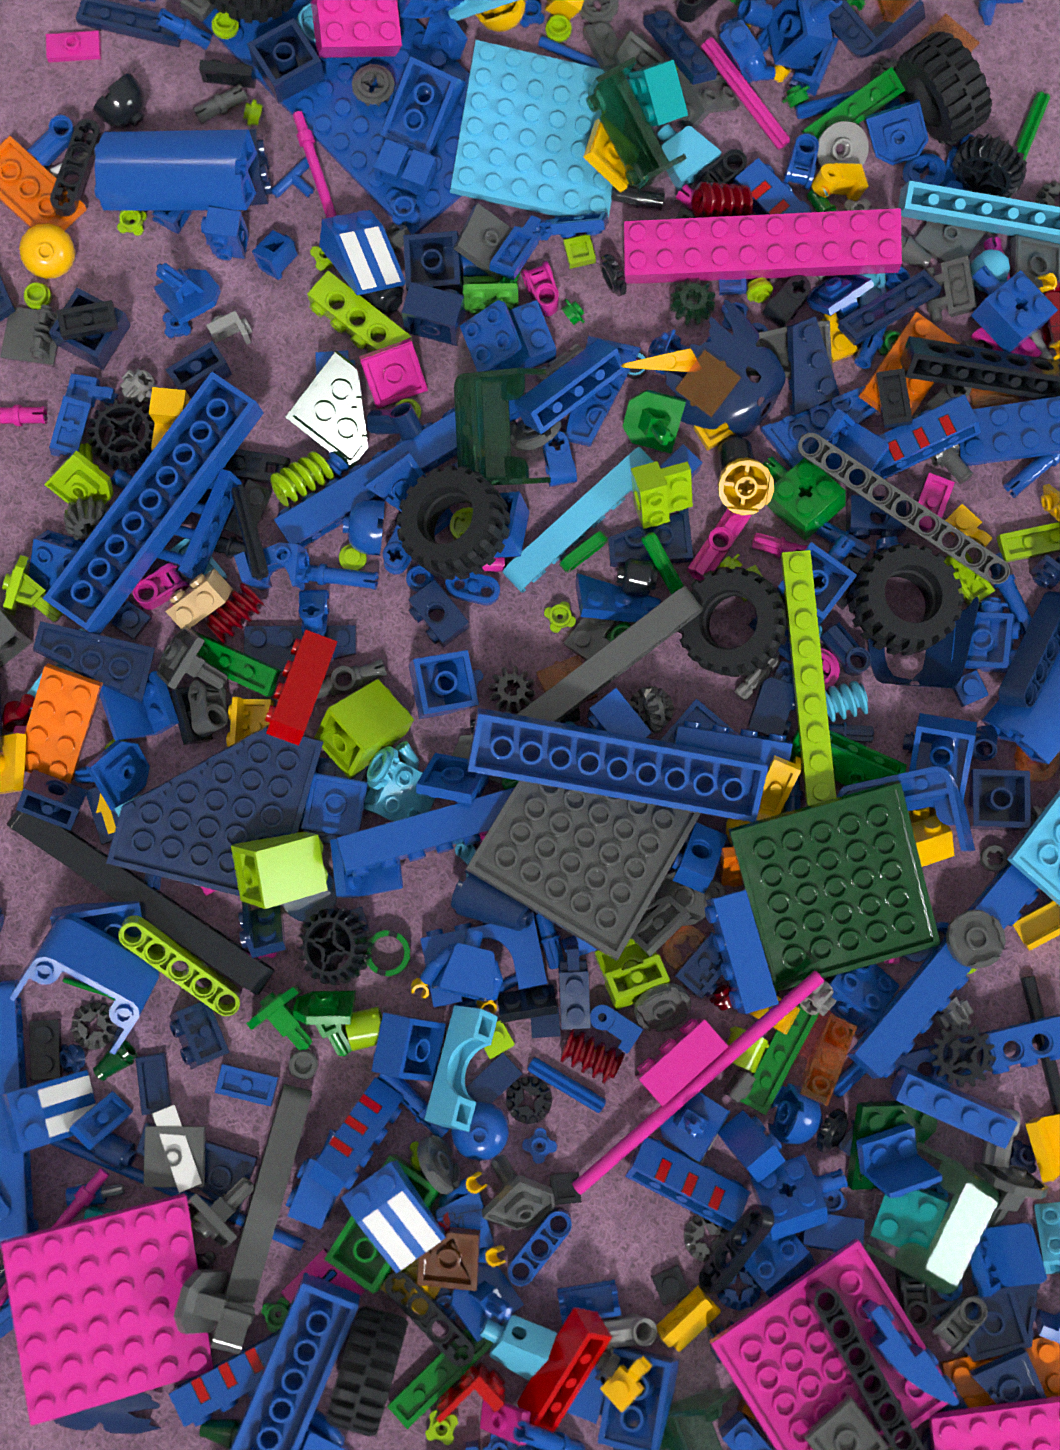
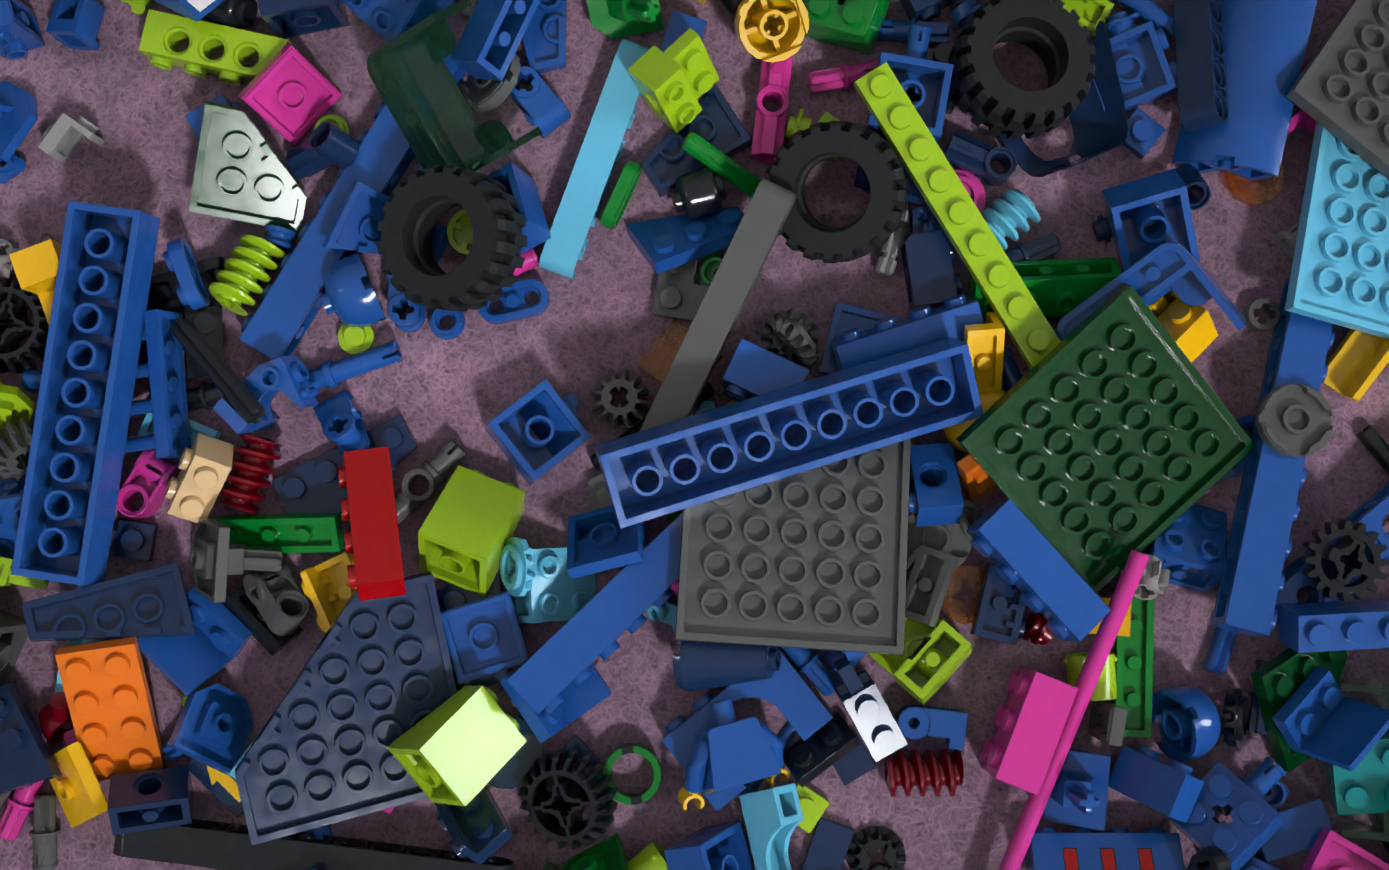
camera: 25 degrees left, 5 degrees up
(194, 369) = (48, 206): dark blue brick -> none
(263, 449) = (191, 285): none -> blue plate
(408, 755) = (539, 535): medium azure arm -> none
(434, 598) = (473, 338): dark blue brick -> none
(559, 609) = (633, 295): lime plate -> none
(566, 1085) = (910, 817): blue axle -> none
(662, 1007) = (976, 676): dark grey tile -> none
(827, 1059) = (1191, 642): clear orange slope -> none
(955, 1012) = (1310, 515): light grey gear -> none
(998, 799) = (1240, 244): dark blue brick -> none

